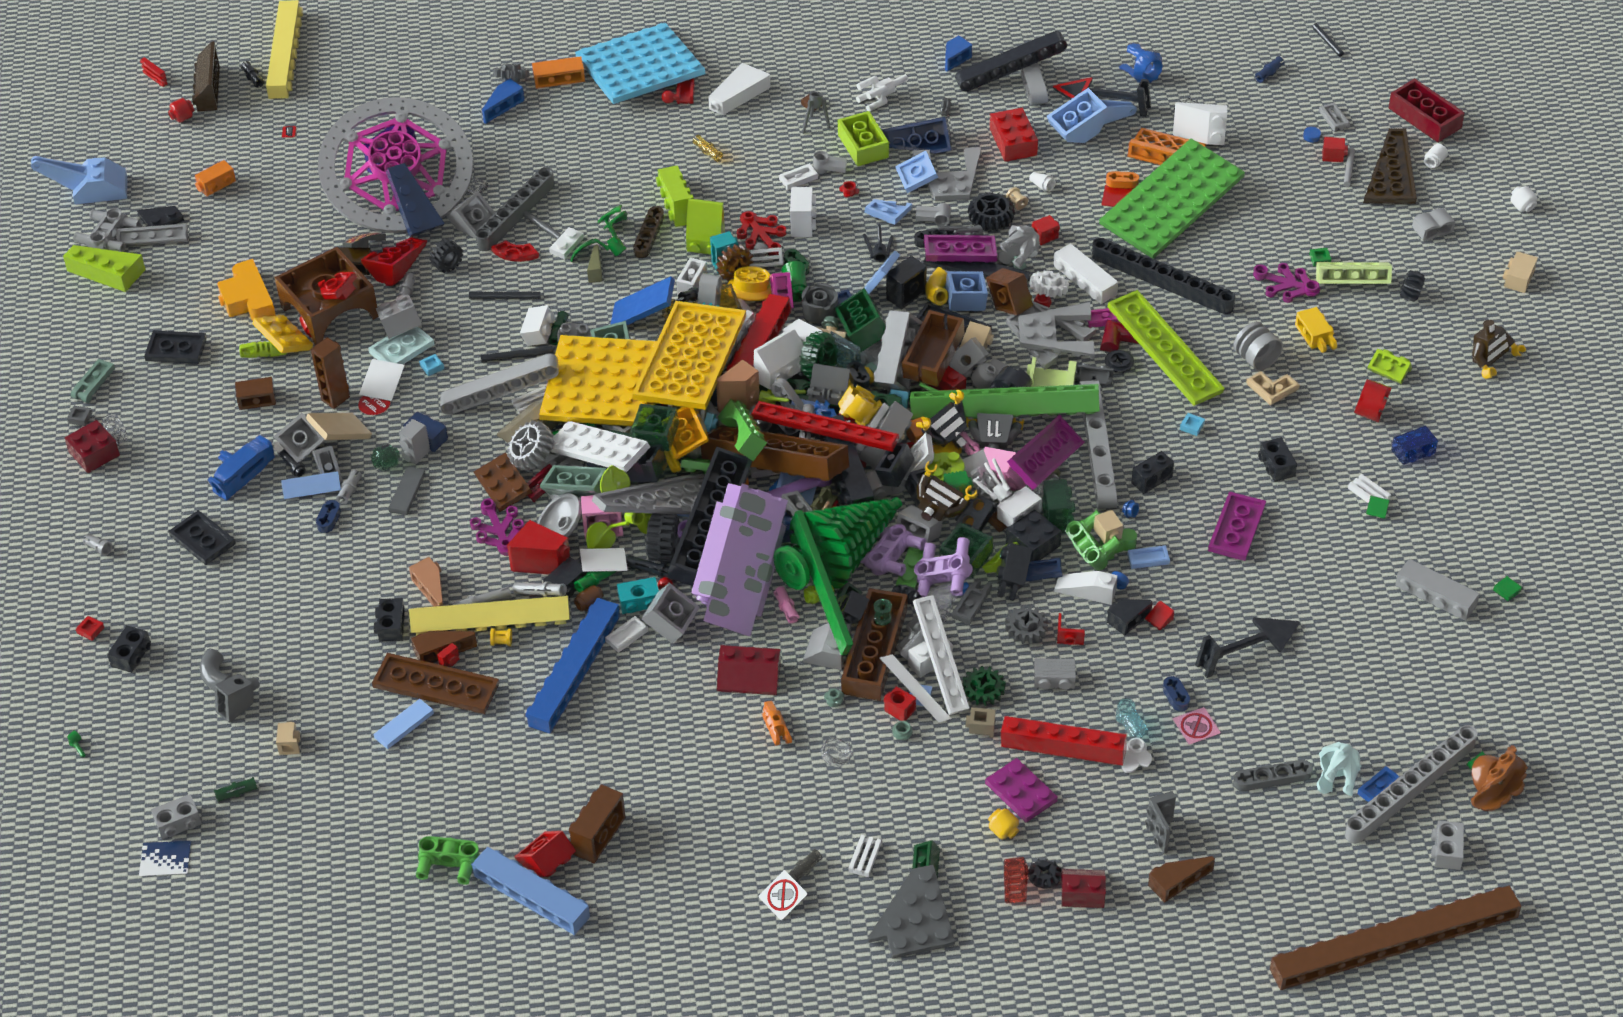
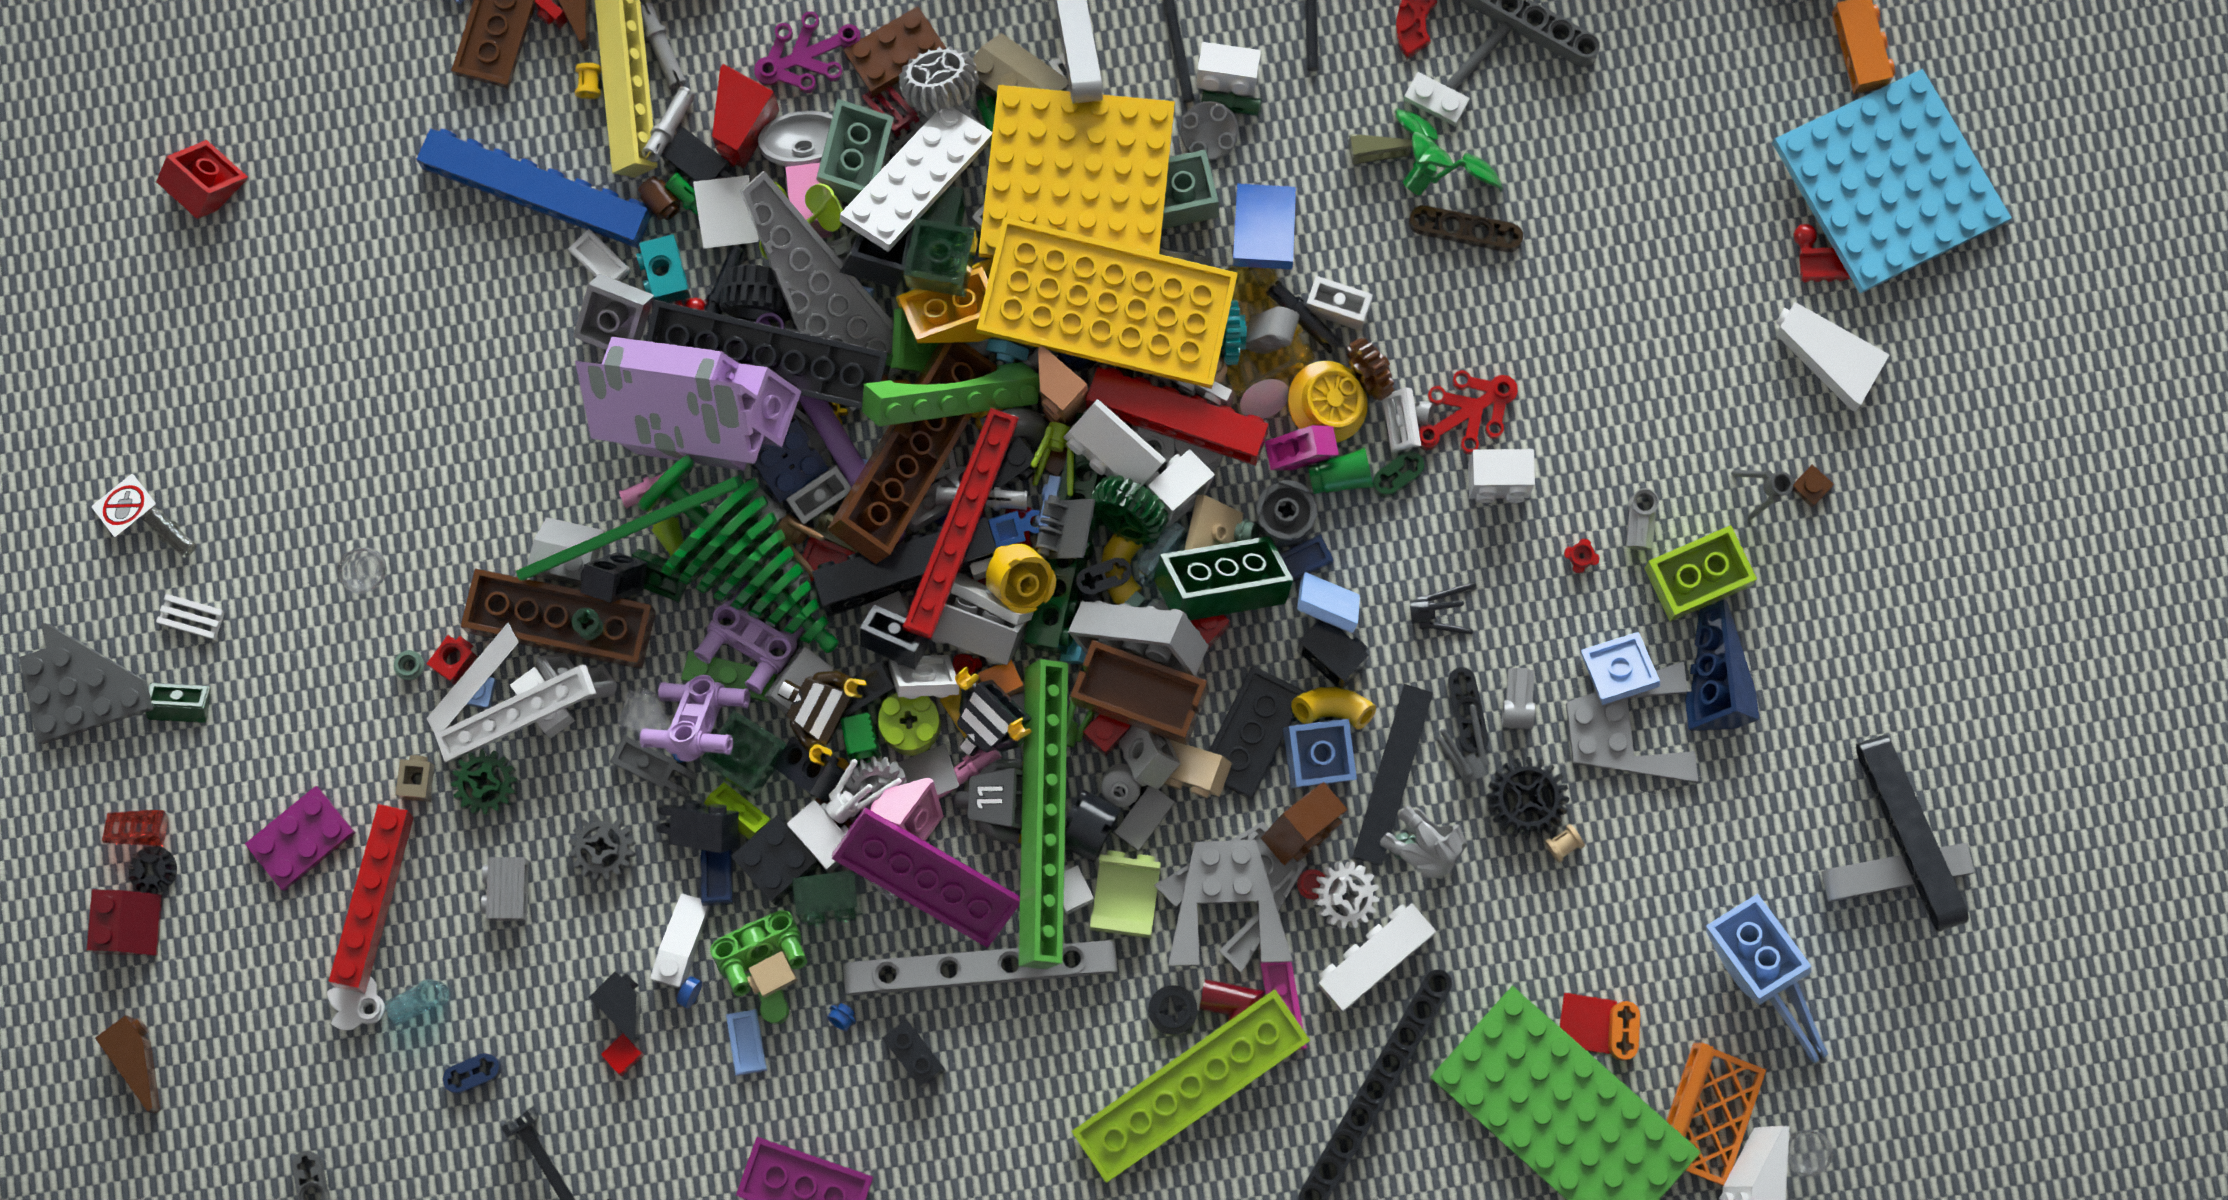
camera: 90 degrees right, 30 degrees up
(449, 853) = (205, 51): bright green piece -> none
(531, 890) = (138, 166): medium blue brick -> none
(597, 823) = (234, 241): reddish brown brick -> none
(675, 192) = (1547, 264): lime wedge -> none
(703, 221) = (1442, 316): lime slope -> none
(707, 148) = (1676, 311): clear yellow pin -> none
(721, 243) = (1400, 349): teal brick -> none
(748, 670) = (520, 438): dark red slope -> none
(775, 723) = (435, 477): orange hinge -> none
(791, 394) = (1044, 470): light grey beam -> none
(798, 176) = (1626, 491): white tile -> none
(834, 701) = (472, 556): sand green plate -> none
(879, 90) = (1837, 600): white plant -> none
(887, 210) = (1527, 622): light blue wing -> none
(911, 592) = (655, 665): black gear -> none
(945, 106) = (1807, 719): dark grey piece -> none
(957, 51) = (1952, 735): blue slope -> none
(960, 248) = (1423, 760): magenta plate -> none
(1003, 824) = (231, 811): yellow head -> none
(1013, 134) = (1728, 837): red brick -> none
(1043, 181) = (1611, 889): white cone -> none
(1047, 229) = (1484, 892): red brick -> none
(1069, 636) = (576, 911): red bracket -> none
(1086, 372) = (1139, 981): dark grey hinge -> none
(1142, 67) = (1921, 1082): blue piece -> none
(1142, 96) = (1863, 954): black piece -> none
(1159, 815) = (230, 1032): dark grey bracket -> none
(1192, 424) = (1027, 1125): medium azure plate -> none
(1196, 725) = (417, 1102): clear pink sticker -> none

